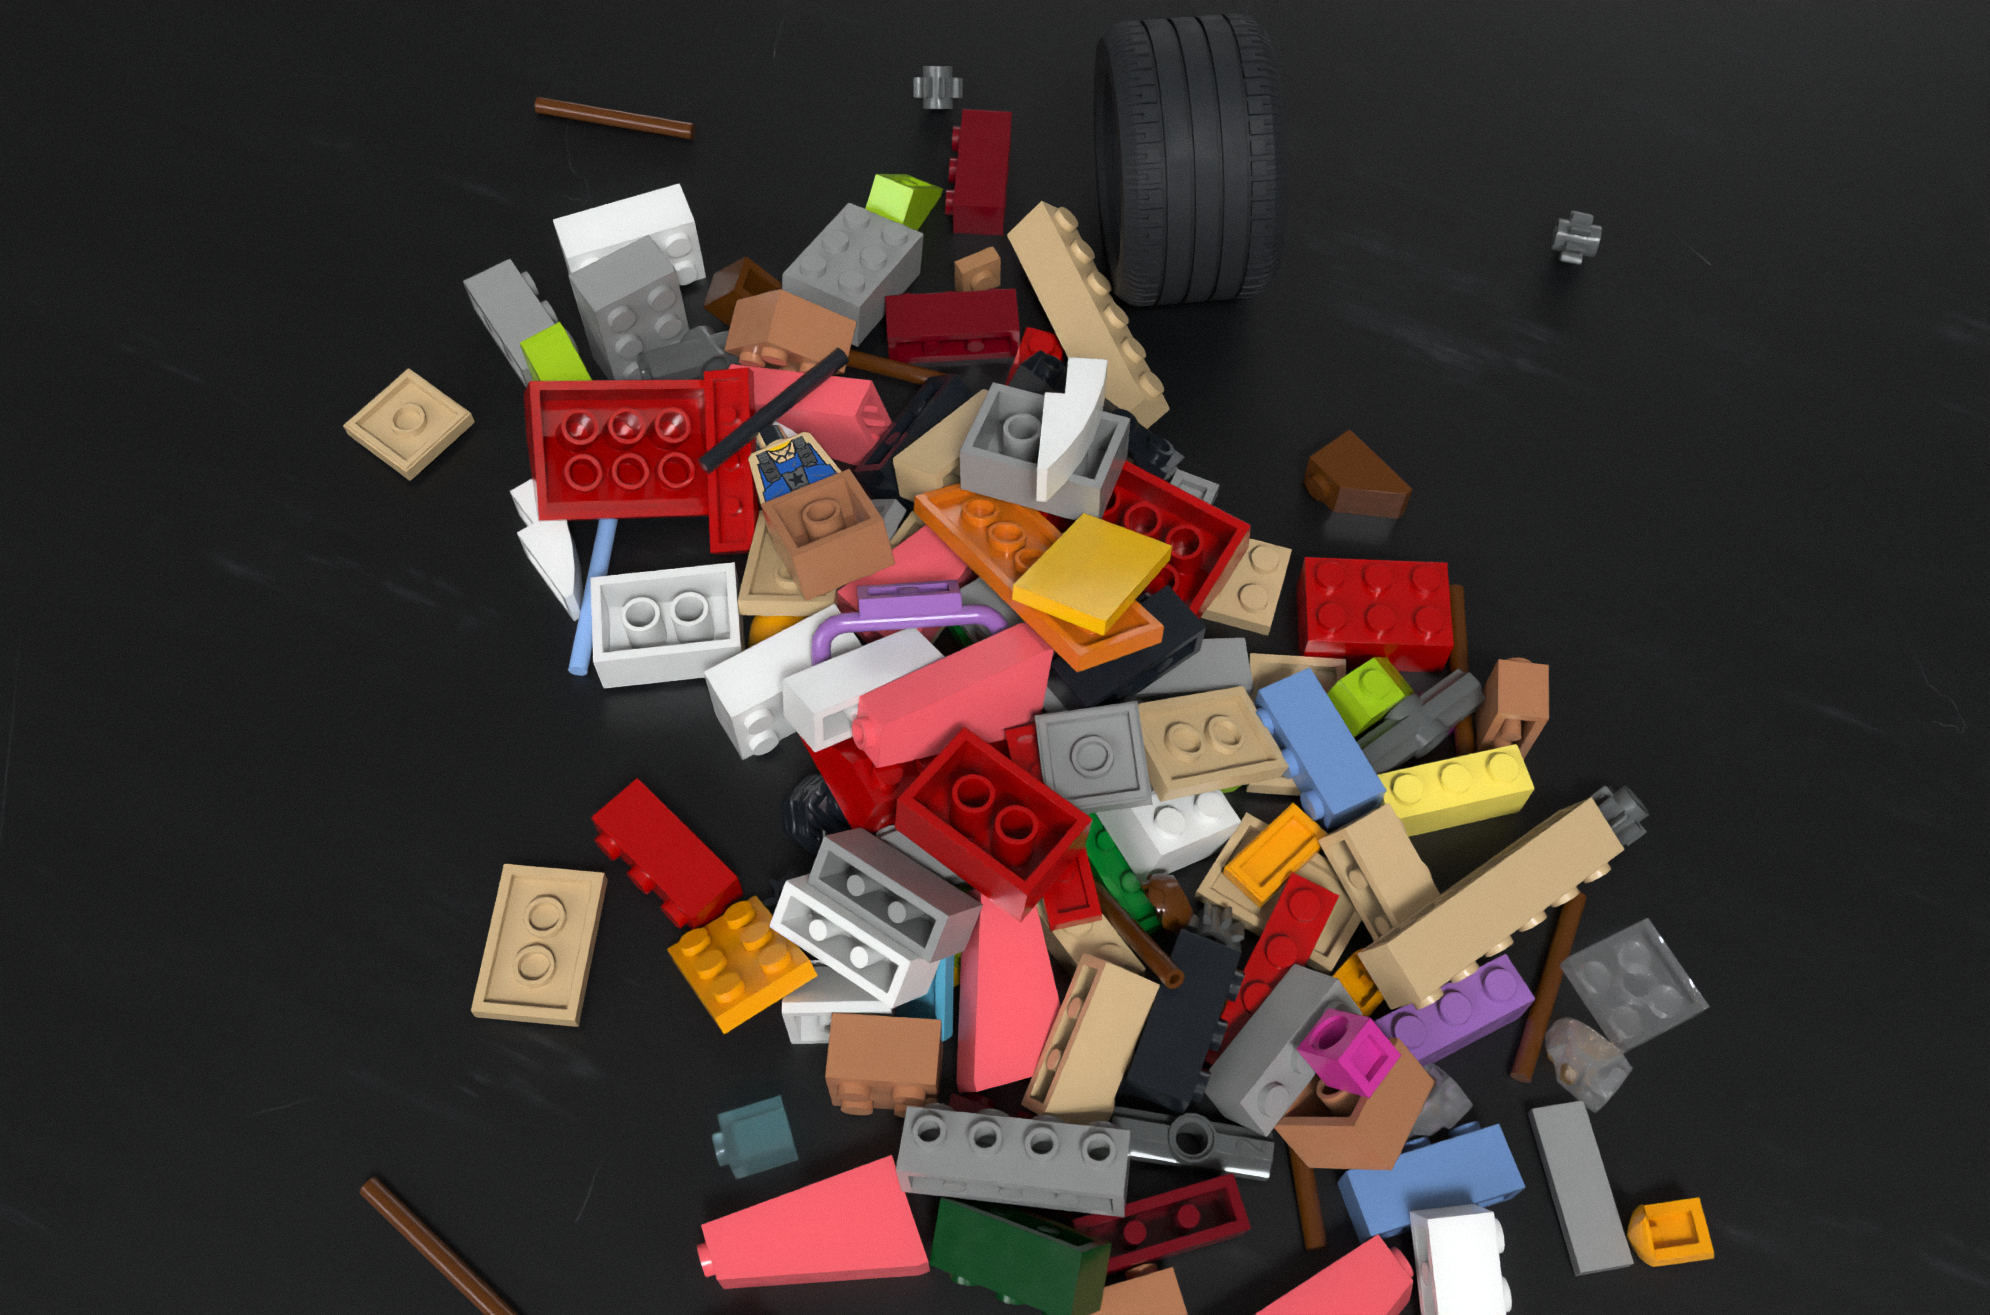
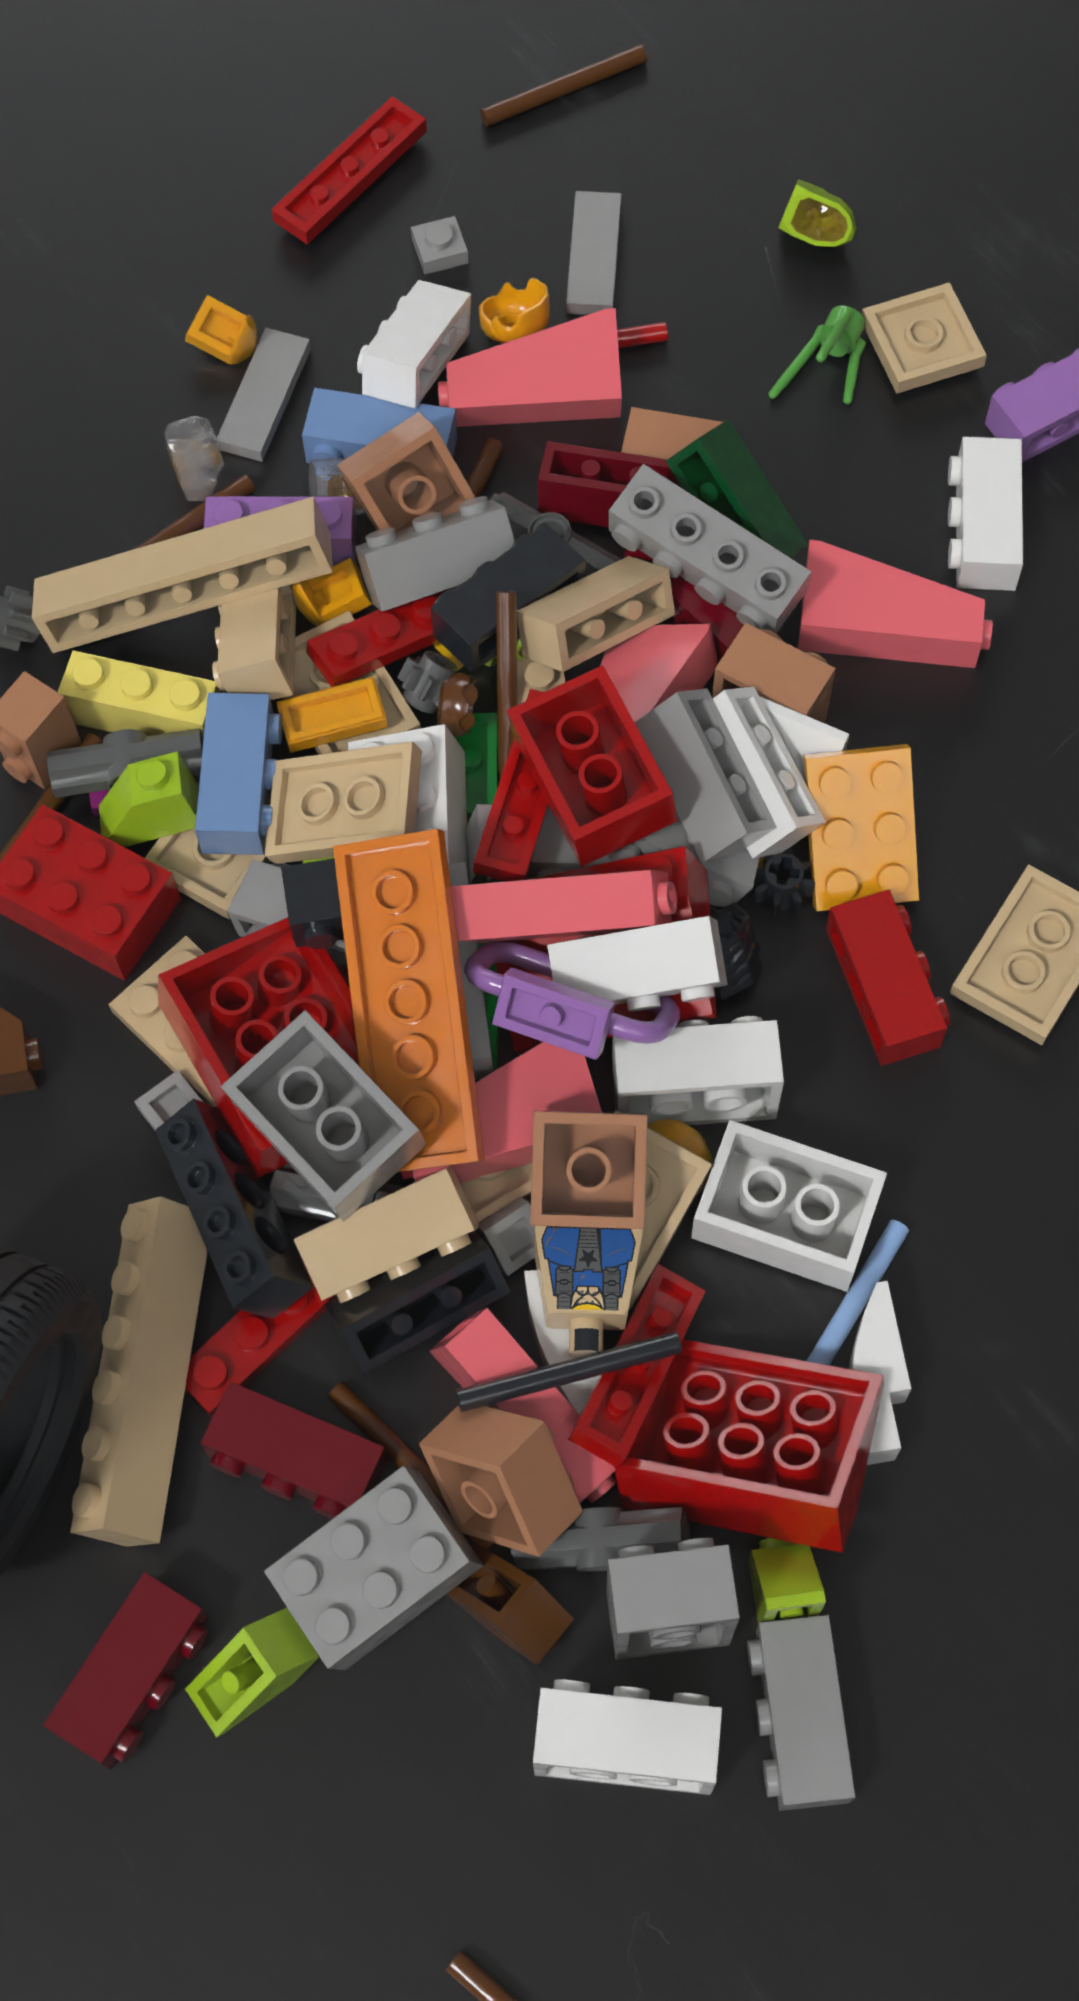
camera: 150 degrees left, 5 degrees up
(409, 424) = (985, 1636): tan plate -> none
(755, 1138) = (906, 704): clear light blue brick -> none
(937, 87) = (103, 1843): dark grey gear -> none
(978, 271) = (223, 1510): medium nougat plate -> none
(1070, 424) = (296, 1078): white slope -> none
(1092, 573) = (362, 941): yellow tile -> none
(1095, 757) = (464, 796): light grey plate -> none
(1349, 1052) = (386, 471): dark pink brick -> none
(1634, 986) = (109, 494): clear plate -> none

